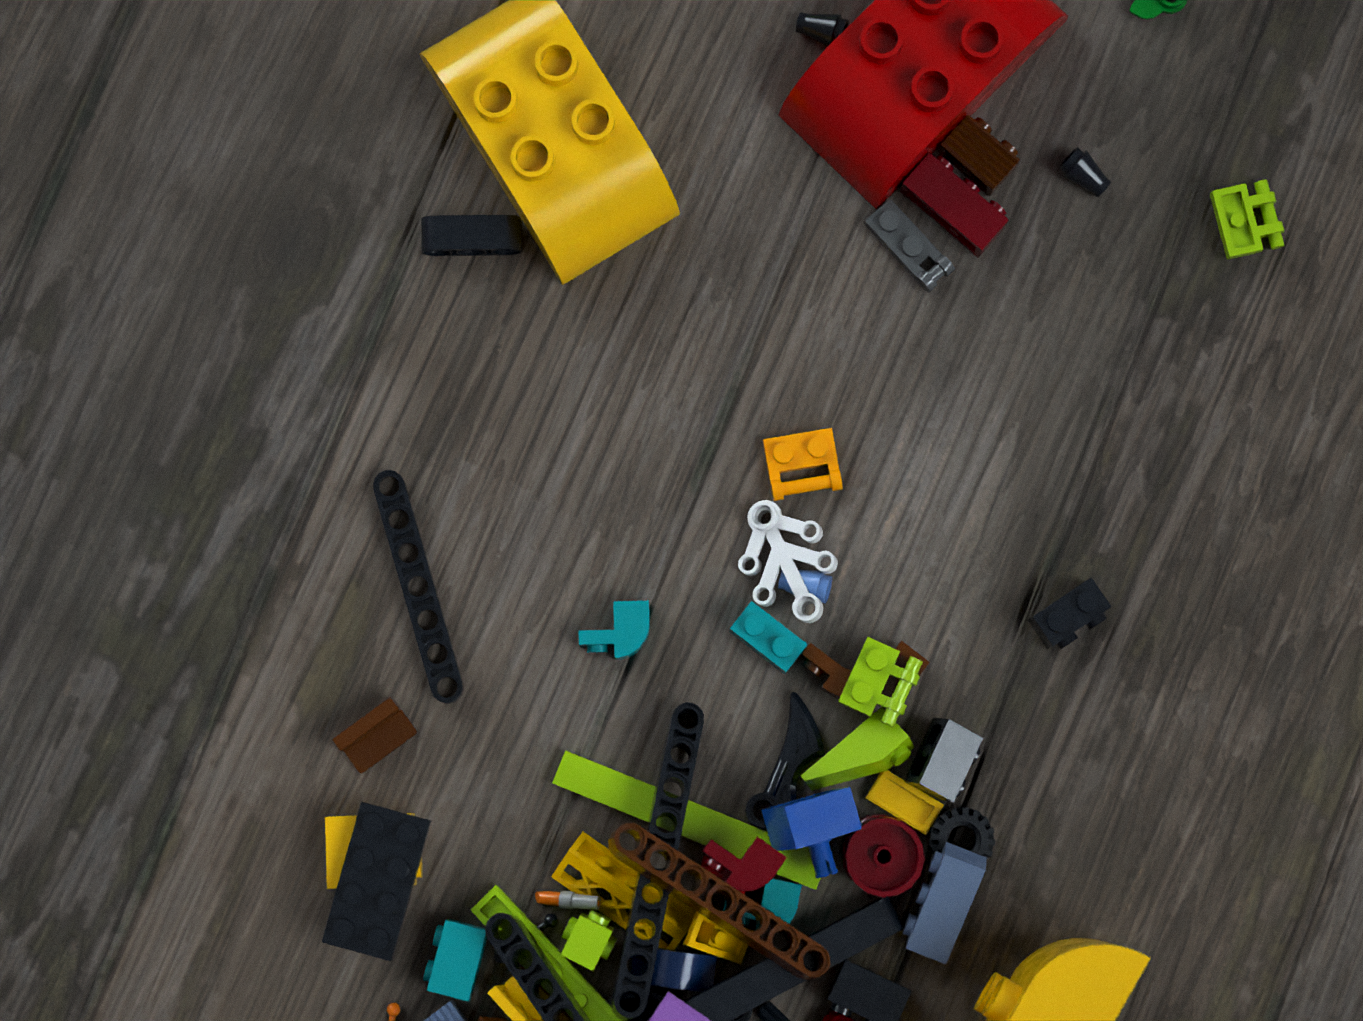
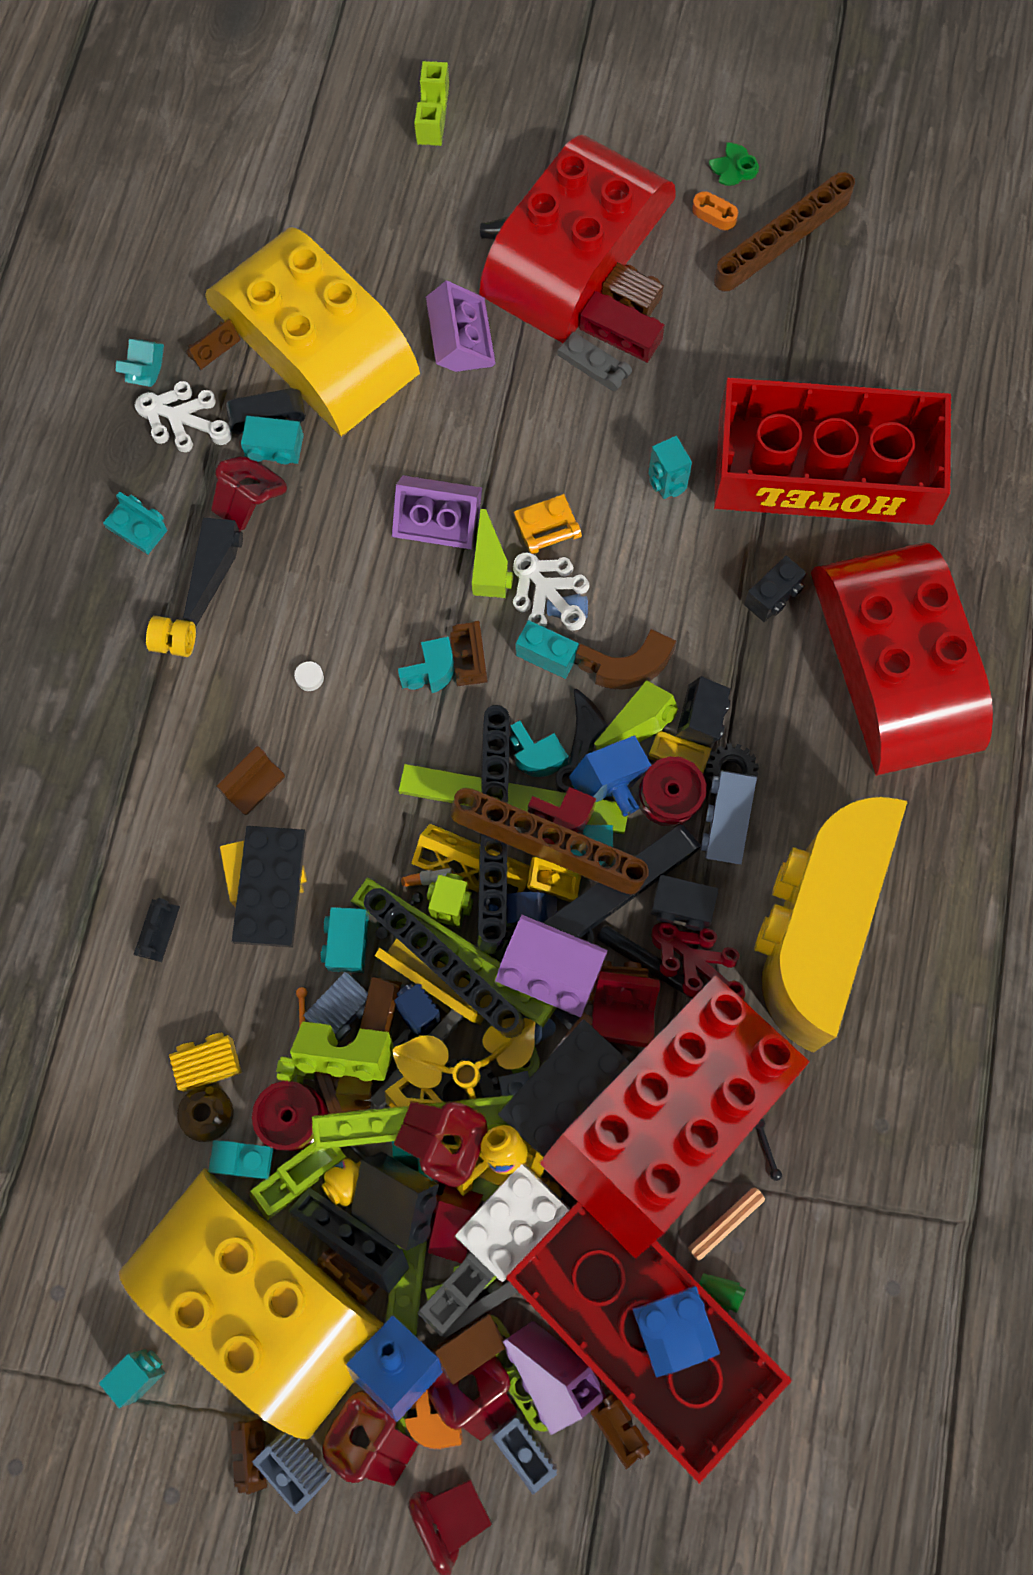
camera: 10 degrees left, 10 degrees down
(233, 900) = (157, 930): none -> black hinge
(282, 361) = (136, 523): none -> teal bracket
(305, 527) = (166, 635): none -> yellow wheel
(323, 134) = (142, 362): none -> teal brick
(359, 217) = (180, 415): none -> white plant
(374, 428) = (214, 556): none -> black slope
(415, 360) = (238, 501): none -> dark red piece
(430, 599) = (270, 678): black beam -> none
(431, 115) = (213, 344): none -> reddish brown hinge
(467, 609) = (309, 676): none -> white tile
(473, 282) = (272, 440): none -> teal brick
(665, 421) = (436, 512): none -> medium lavender slope
(669, 622) = (468, 654): none -> reddish brown hinge
(719, 508) = (490, 563): none -> lime slope
(731, 777) = (538, 758): none -> teal brick
(743, 166) = (459, 328): none -> medium lavender slope
(870, 676) = (632, 656): lime plate -> none
(971, 427) = (669, 468): none -> teal brick
(1084, 171) = (712, 289): black cone -> none
(1120, 47) = (715, 210): none -> orange beam
(1181, 453) = (833, 451): none -> red brick
(1208, 731) = (906, 656): none -> red brick
(1211, 95) = (784, 231): none -> reddish brown beam
(1237, 221) = (832, 302): lime plate -> none

